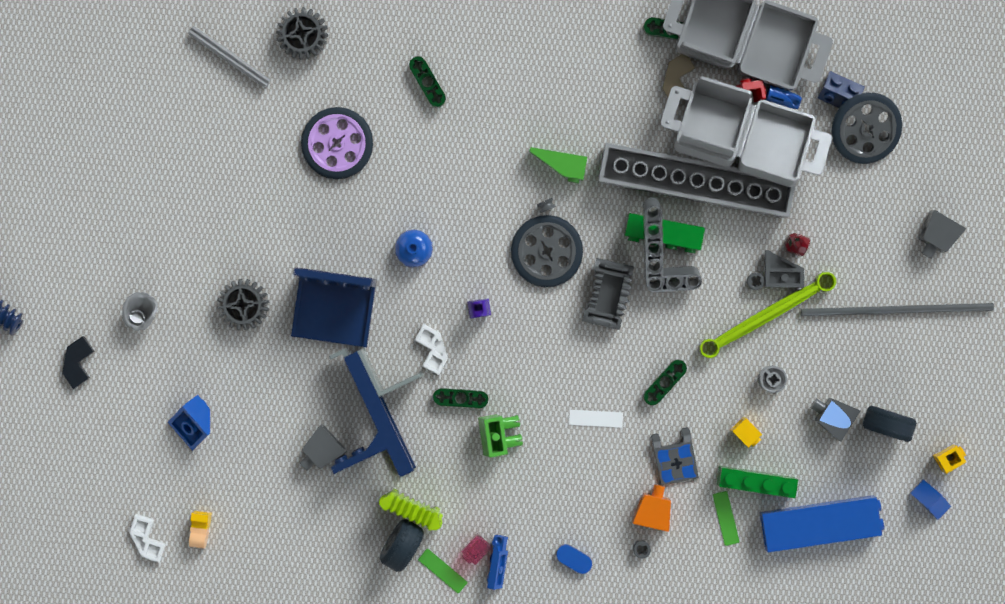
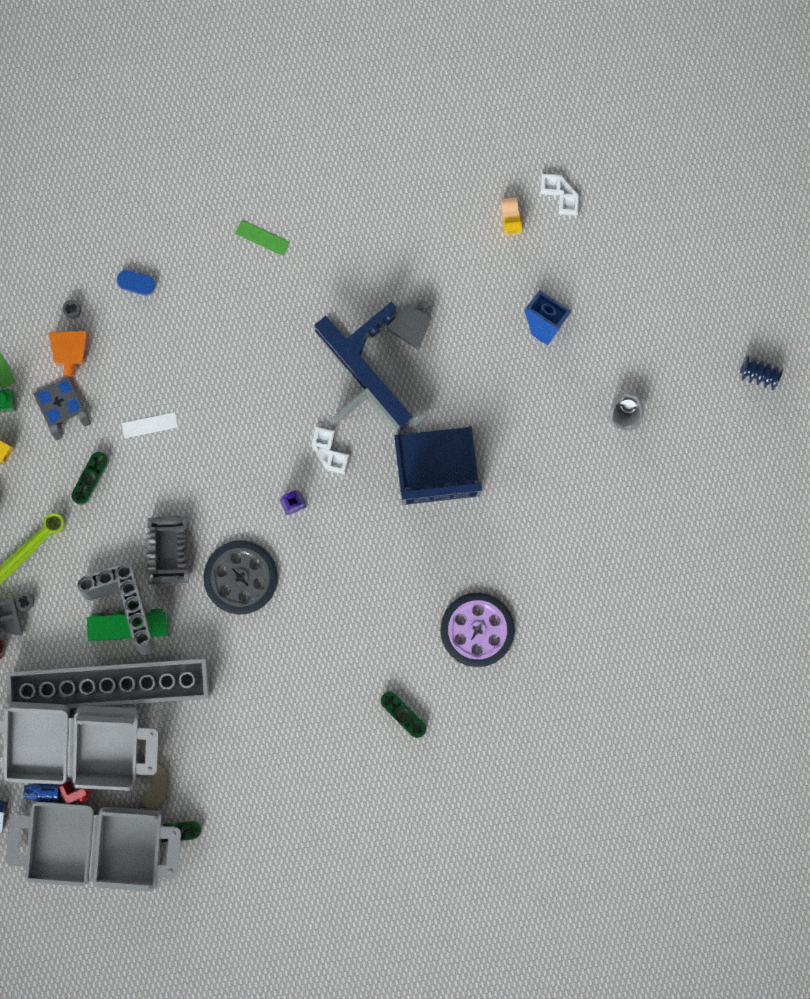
camera: 160 degrees right, 5 degrees down
(74, 355) = (678, 338): black tile -> none
(229, 57) = (607, 687): light grey axle -> none
(243, 296) = (523, 436): dark grey gear -> none
(294, 34) = (556, 721): dark grey gear -> none
(401, 545) = (307, 250): black wheel -> none
(412, 509) = (307, 288): lime piece -> none
(413, 248) = (373, 545): blue cylinder -> none
(455, 404) = (272, 407): dark green beam -> none
(475, 549) = (235, 266): clear pink brick -> none
(493, 434) = (246, 380): bright green brick -> none
(498, 562) = (209, 260): blue hinge -> none
(547, 205) = (252, 622): dark grey bush -> none
(565, 164) = (242, 667): bright green slope -> none

